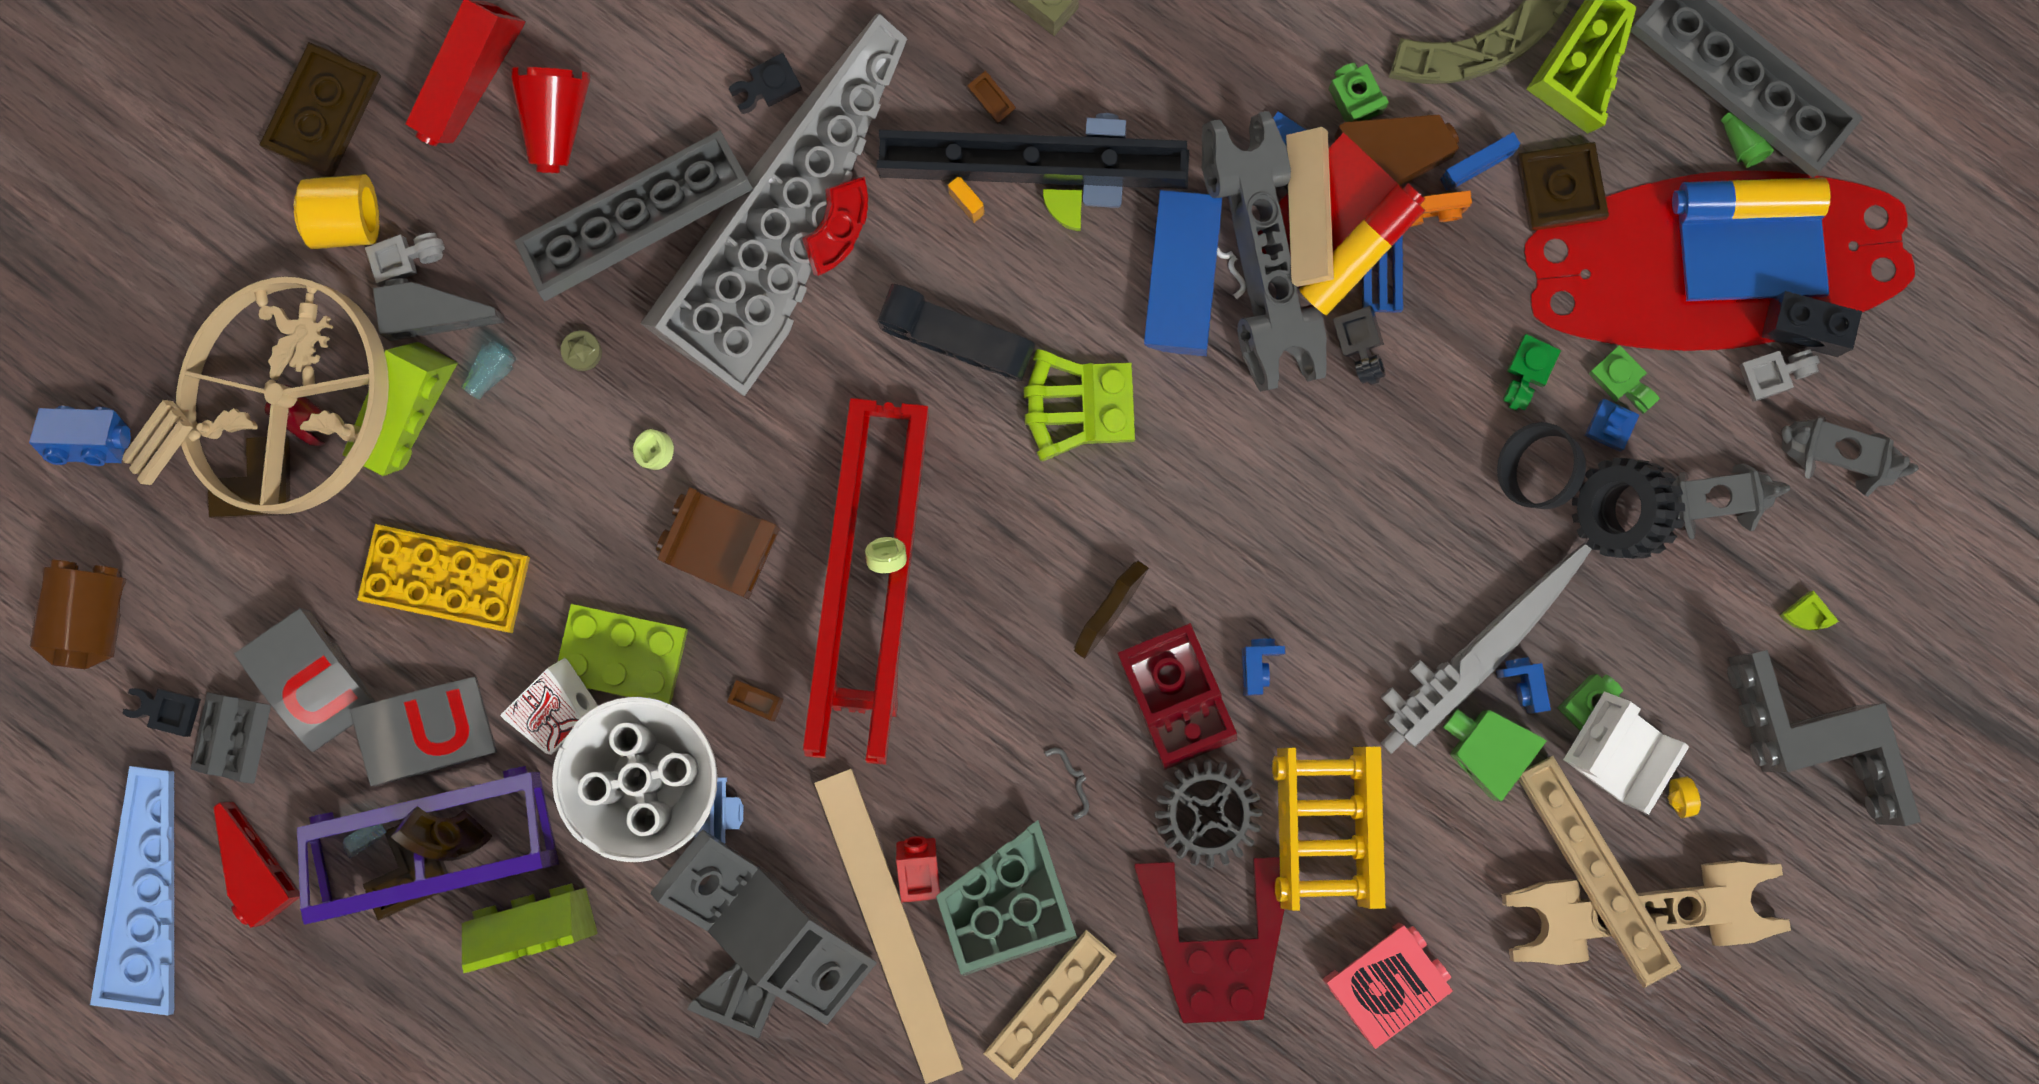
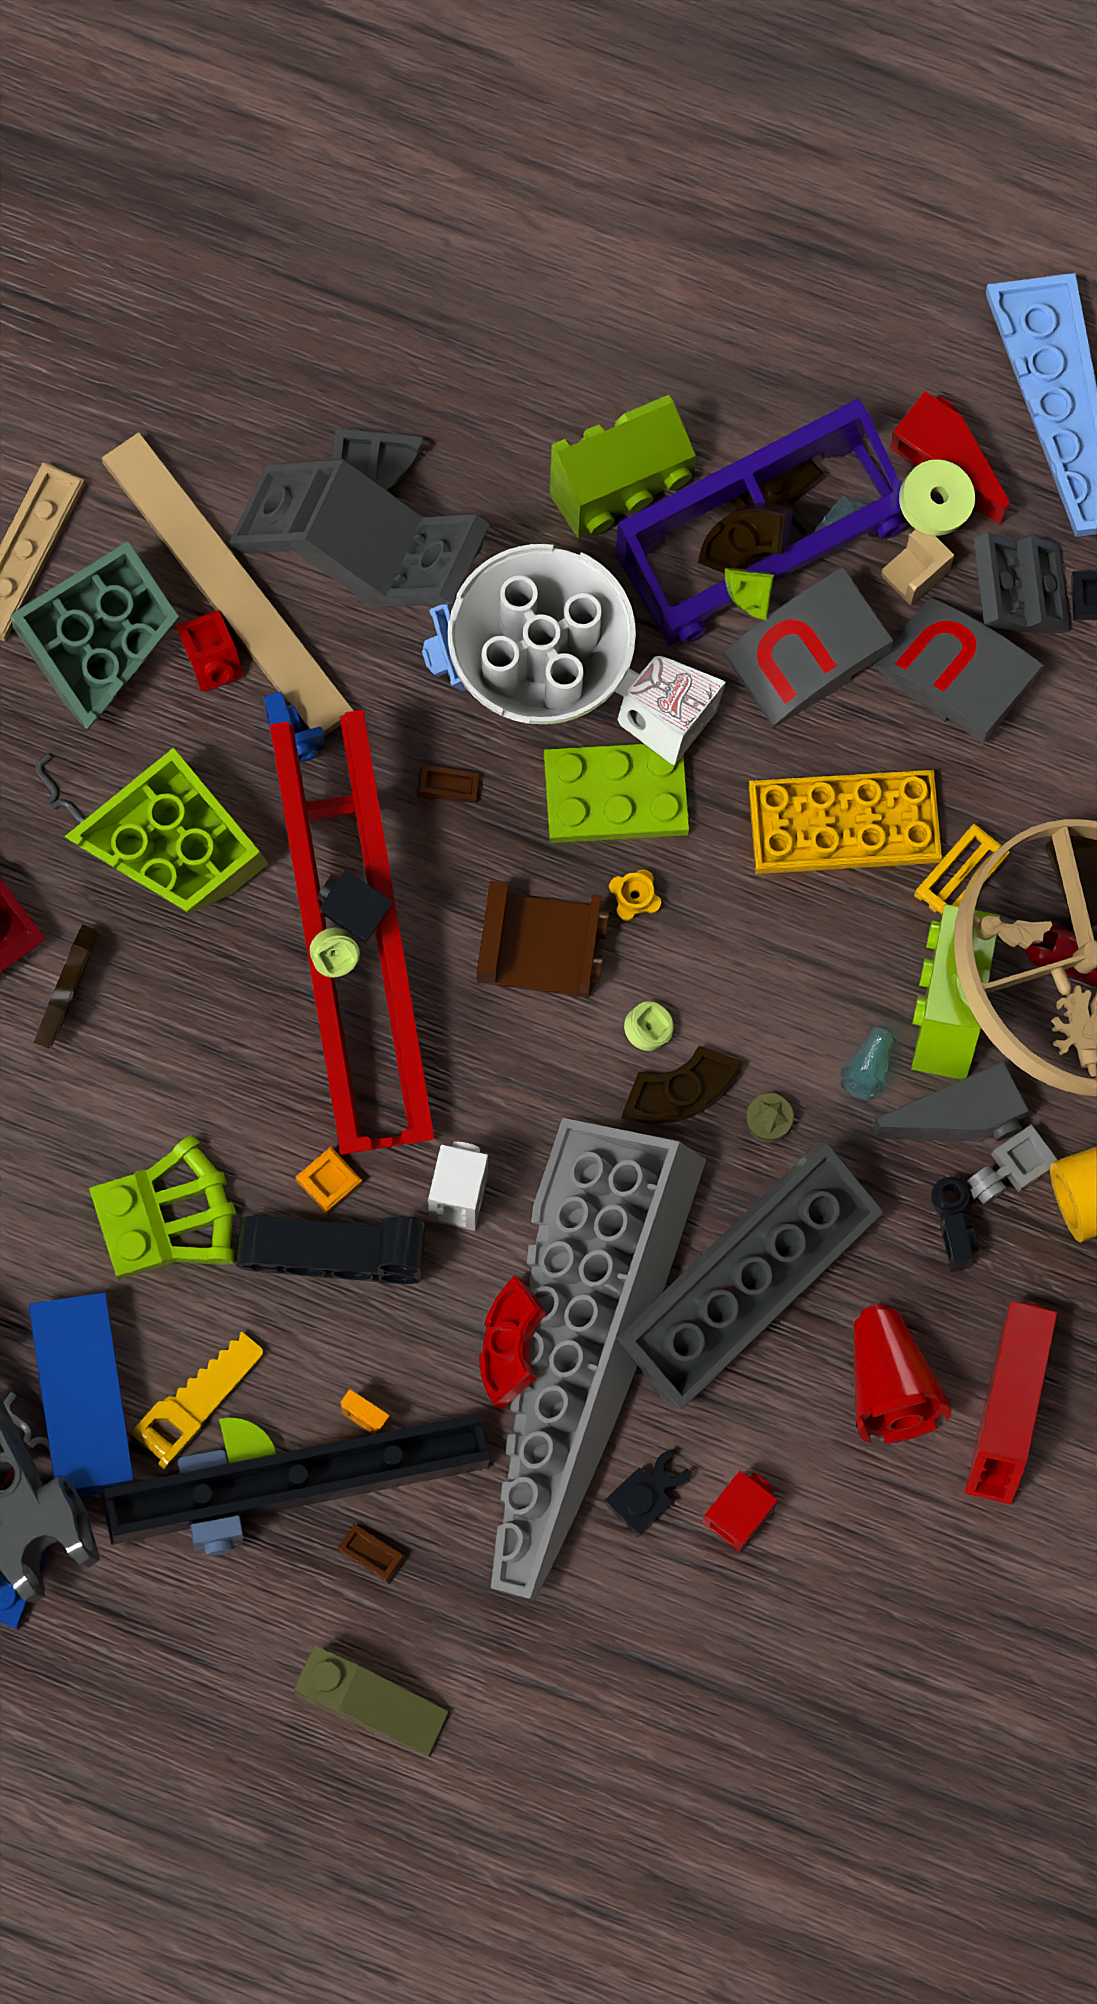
camera: 155 degrees right, 10 degrees down
(254, 822) = (920, 508): none -> yellowish green piece
(311, 779) = (918, 566): none -> tan panel
(391, 491) = (937, 902): none -> yellow tile
(453, 787) = (750, 590): none -> lime tile
(465, 212) = (958, 1239): none -> black plate
(621, 558) = (643, 884): none -> yellow plate
(641, 392) = (681, 1092): none -> dark brown tile
(698, 47) = (741, 1509): none -> red brick
(841, 351) = (458, 1185): none -> white brick
(858, 585) = (353, 905): none -> black brick
(875, 785) = (307, 741): none -> blue bracket
(943, 396) = (328, 1180): none -> light orange tile
(992, 707) = (171, 837): none -> lime wedge
(1092, 250) = (198, 1400): none -> yellow piece

